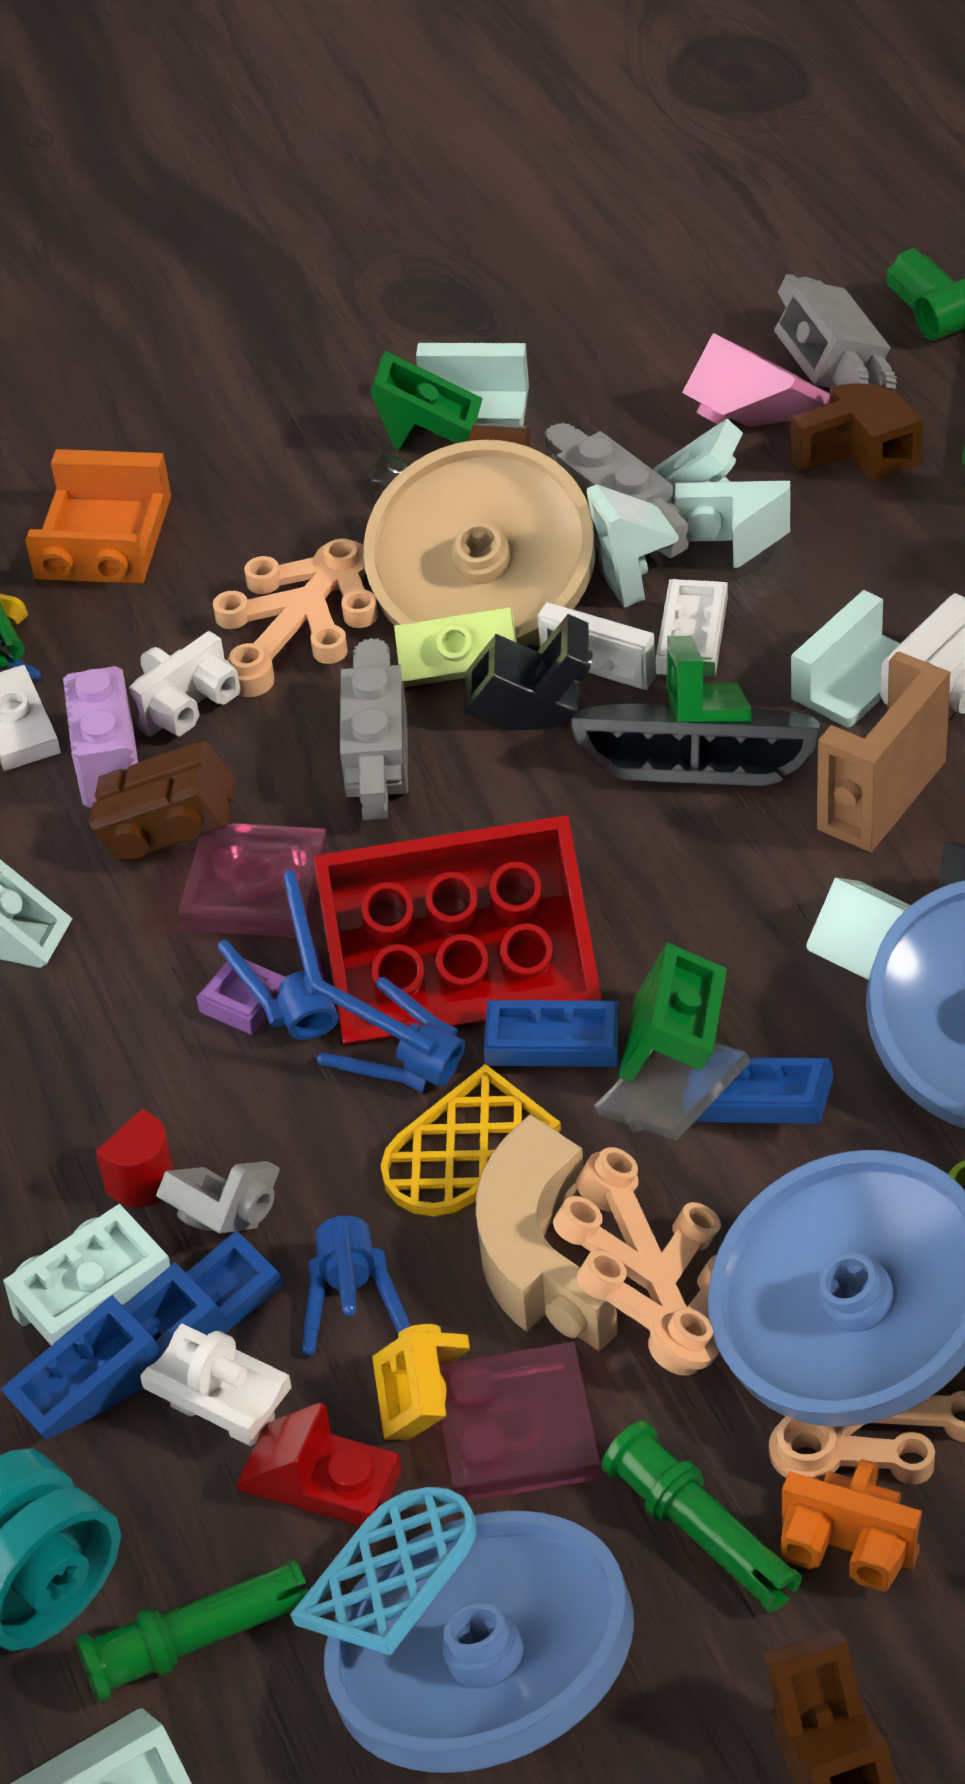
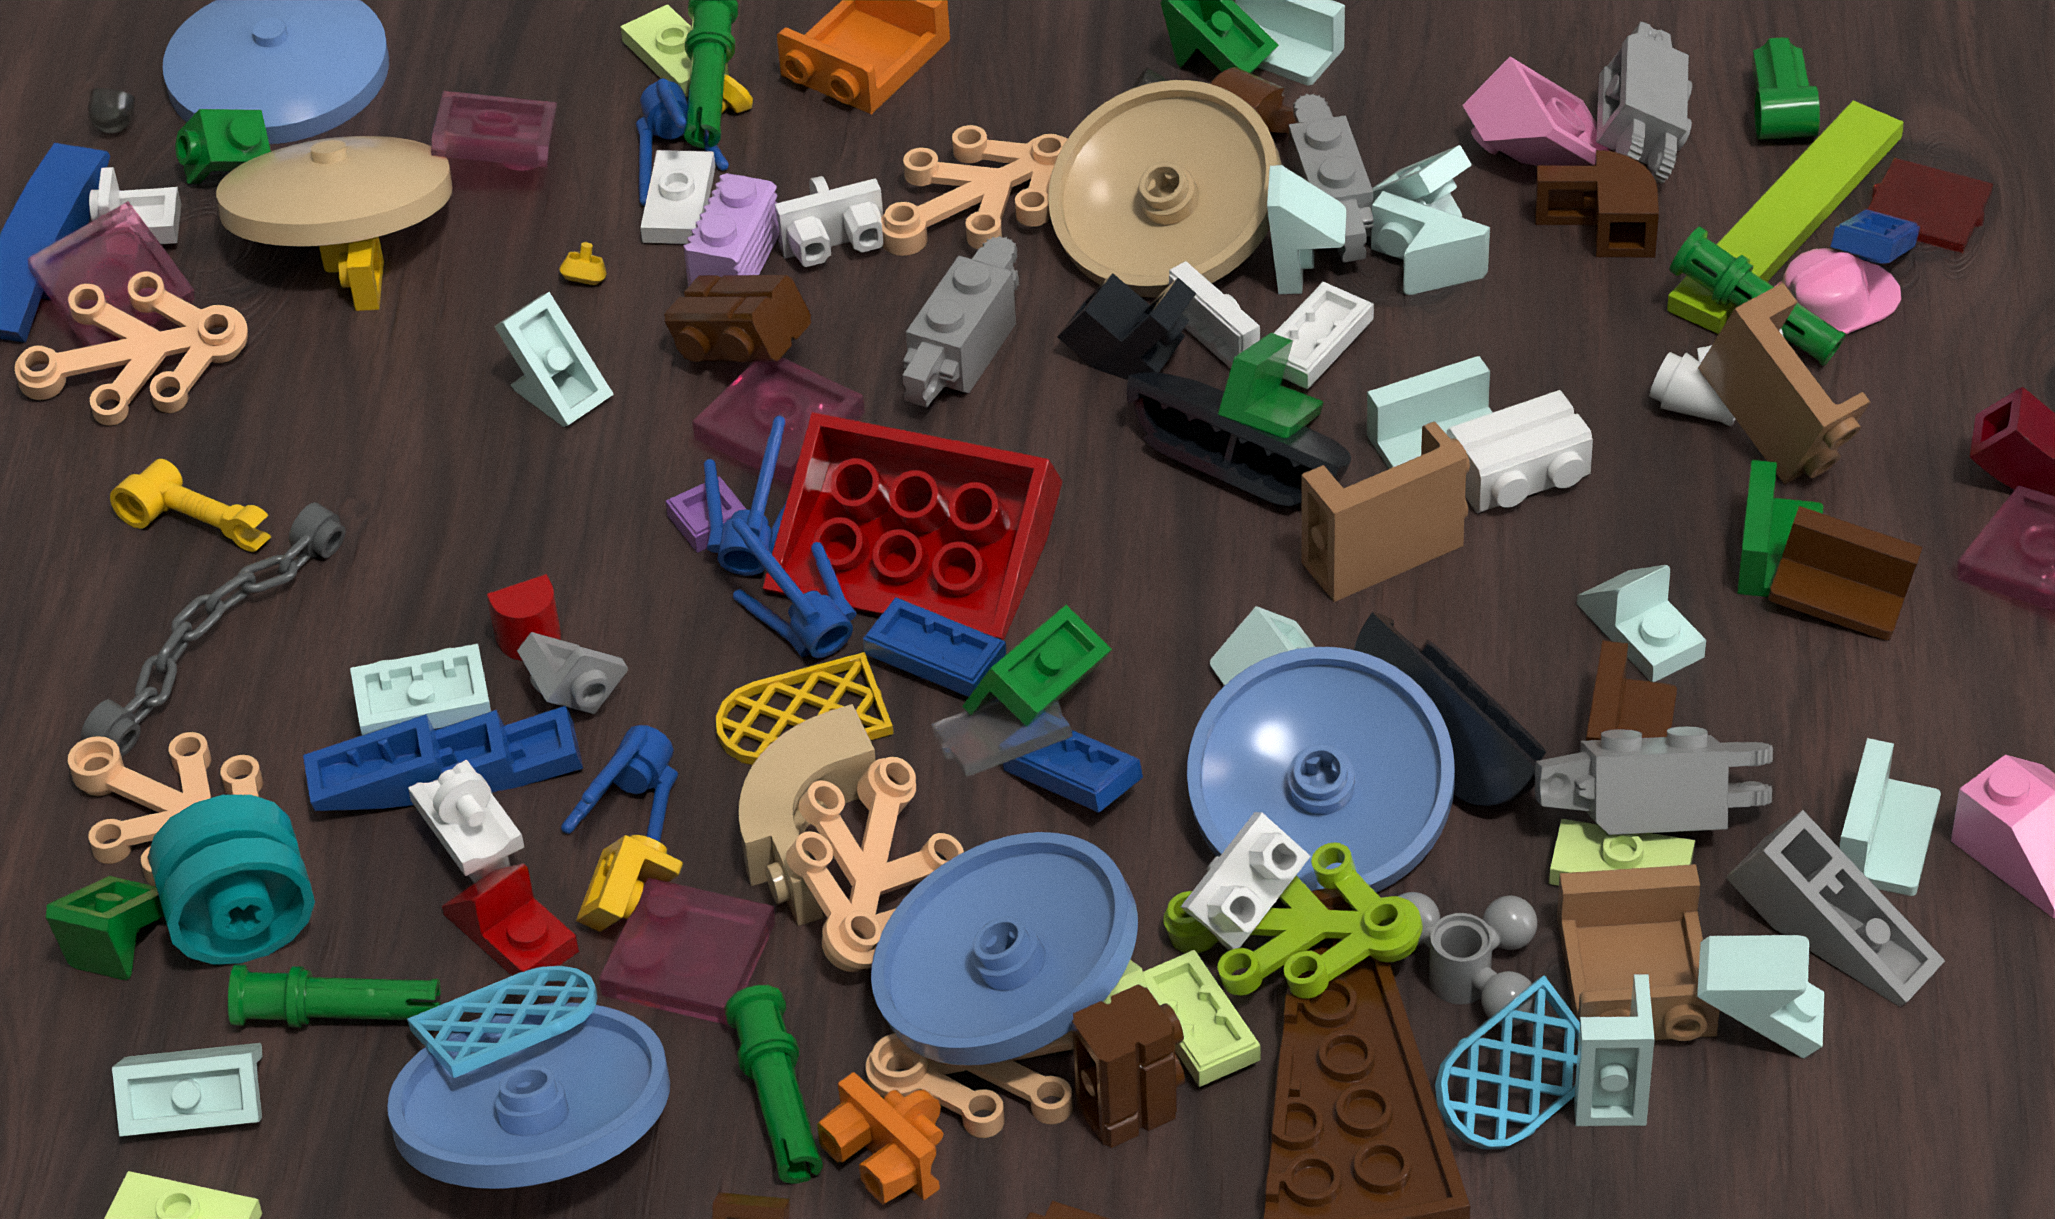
camera: 25 degrees right, 0 degrees up
(448, 646) = (1074, 268): yellowish green plate -> none

